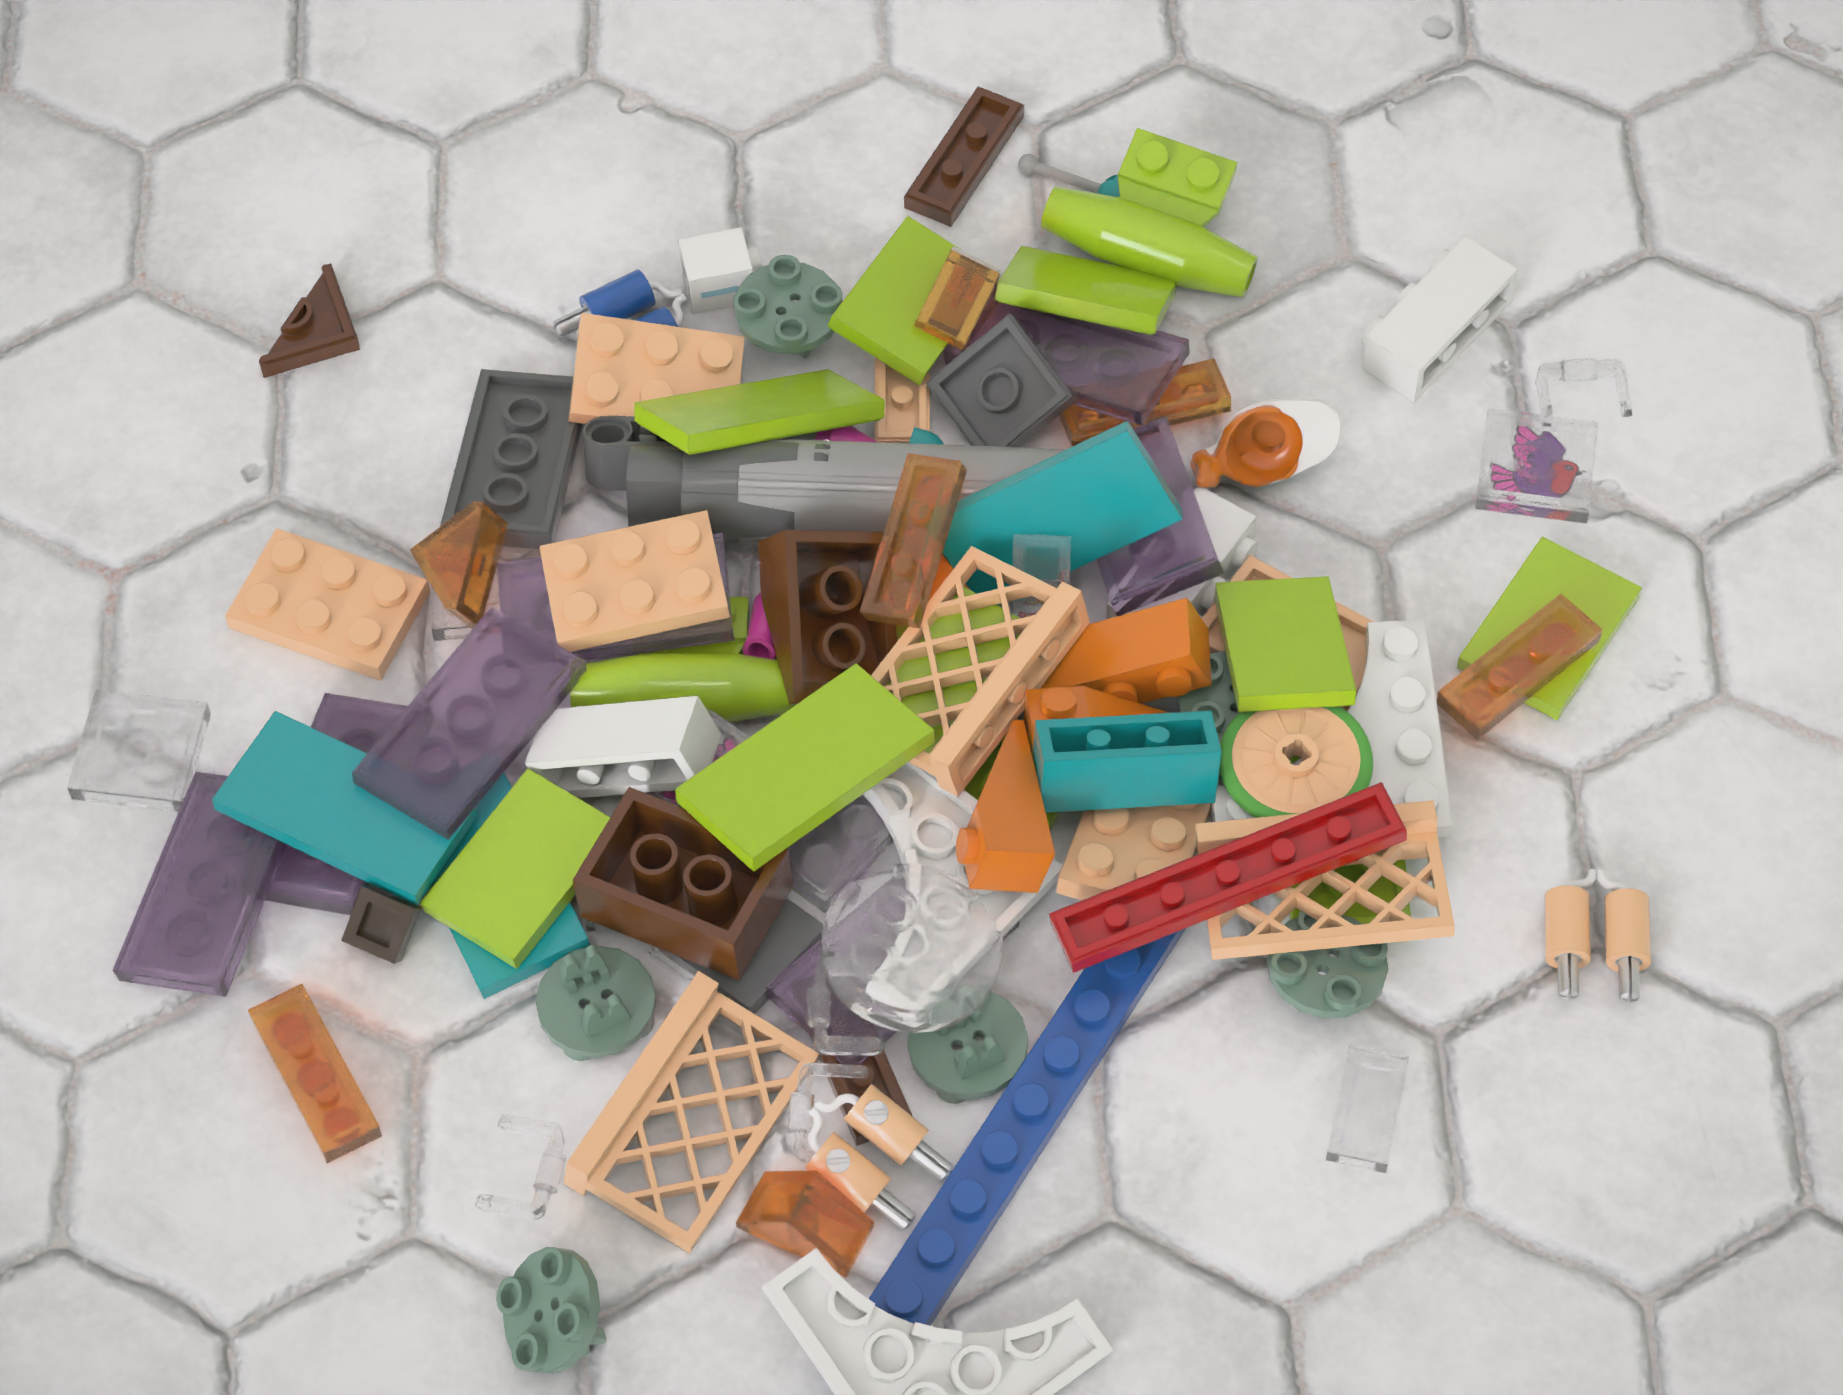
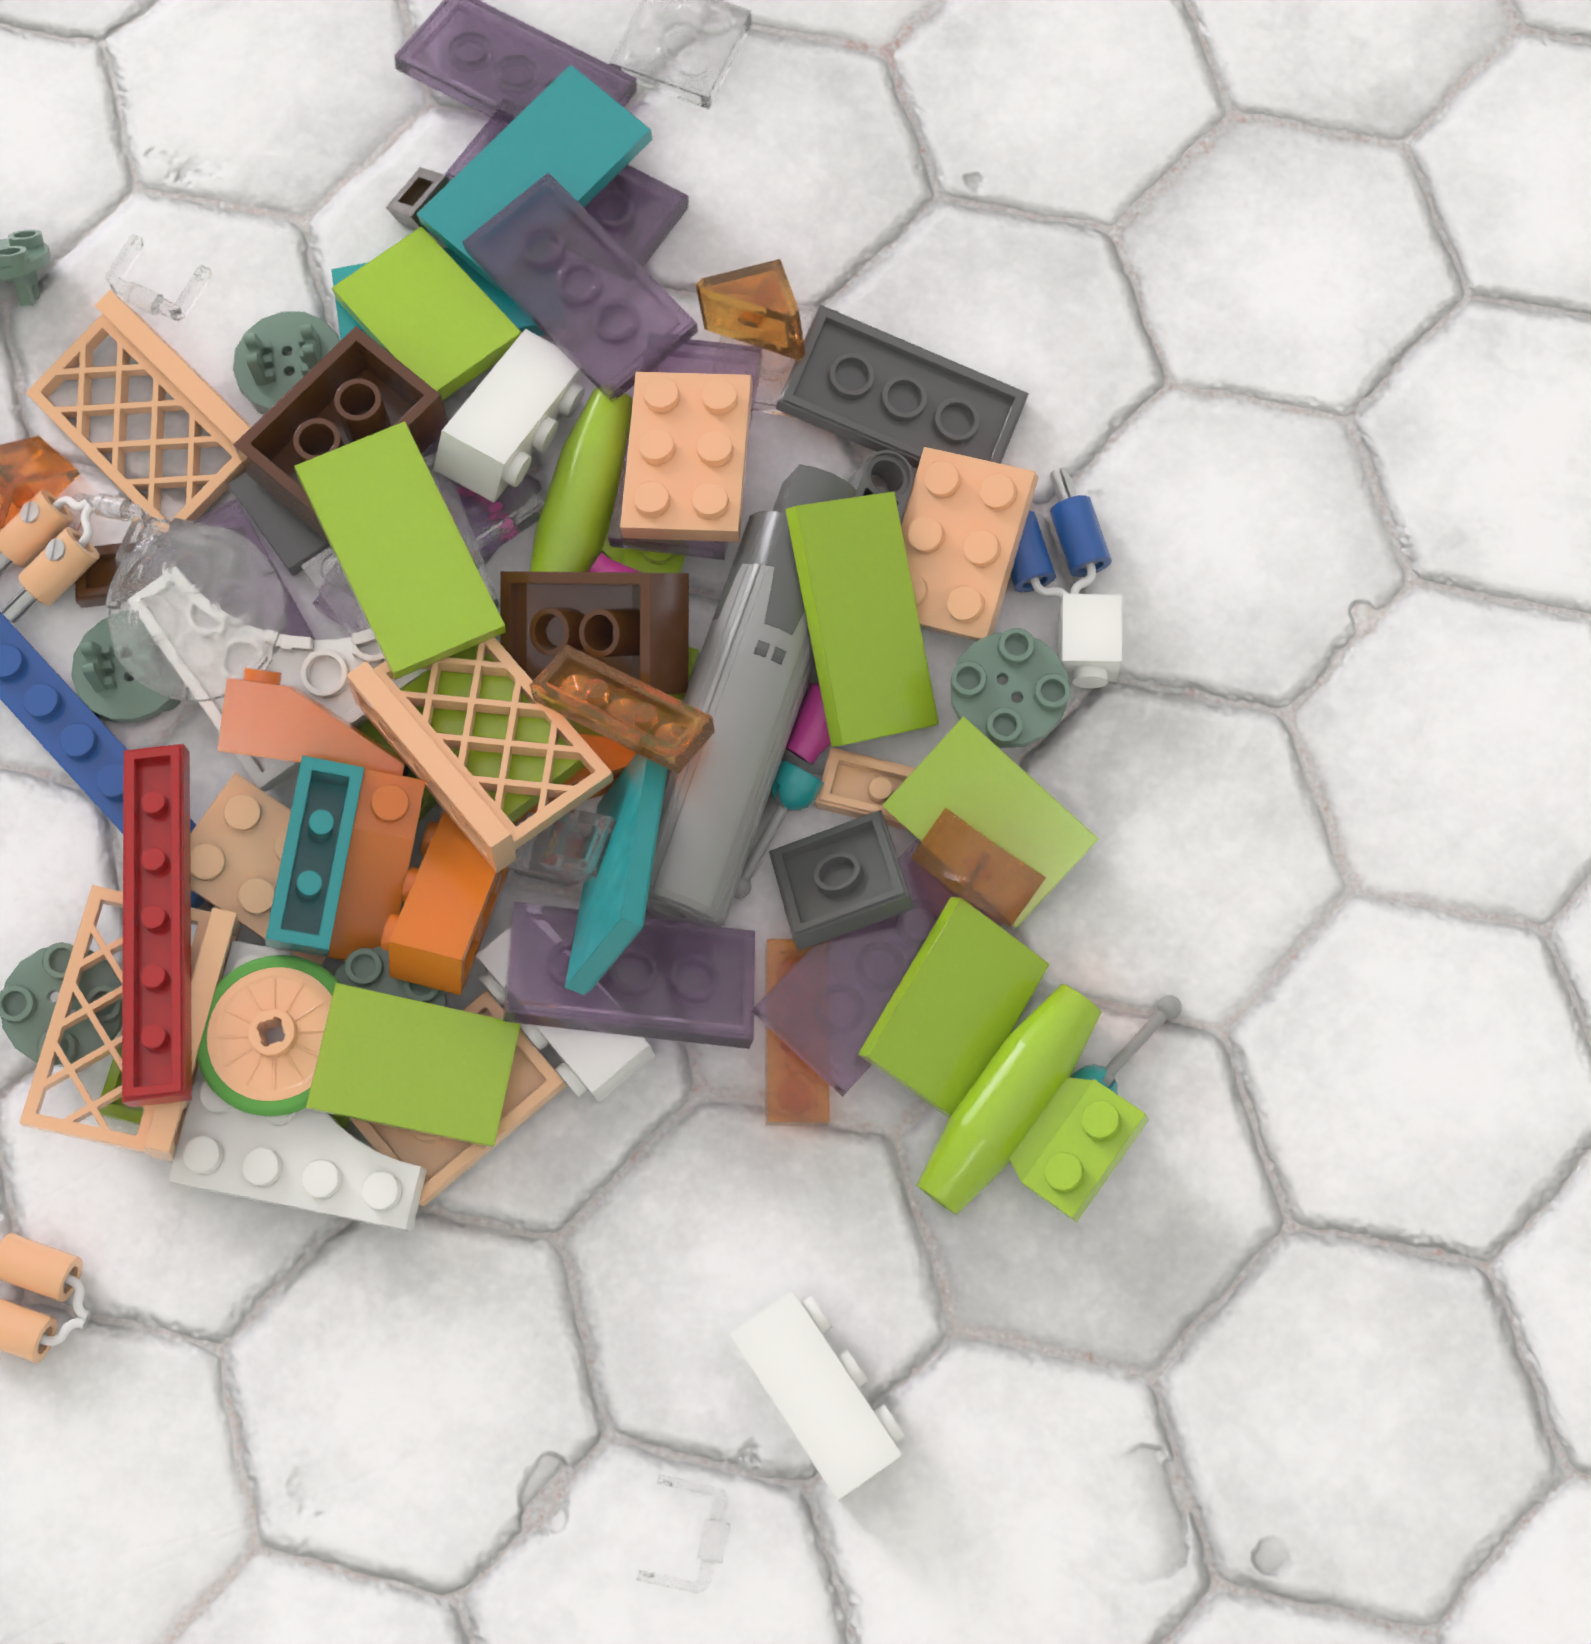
camera: 110 degrees right, 15 degrees up
(314, 330) = (1130, 259): reddish brown tile -> none
(314, 1073) = (298, 127): clear orange plate -> none
(328, 604) = (795, 211): light nougat plate -> none
(964, 156) = (1197, 940): reddish brown tile -> none
(1269, 442) = (696, 1131): orange hair -> none
(1518, 666) = (327, 1317): clear orange plate -> none
(1537, 465) = (601, 1444): clear tile -> none
(1541, 578) = (391, 1382): lime tile -> none

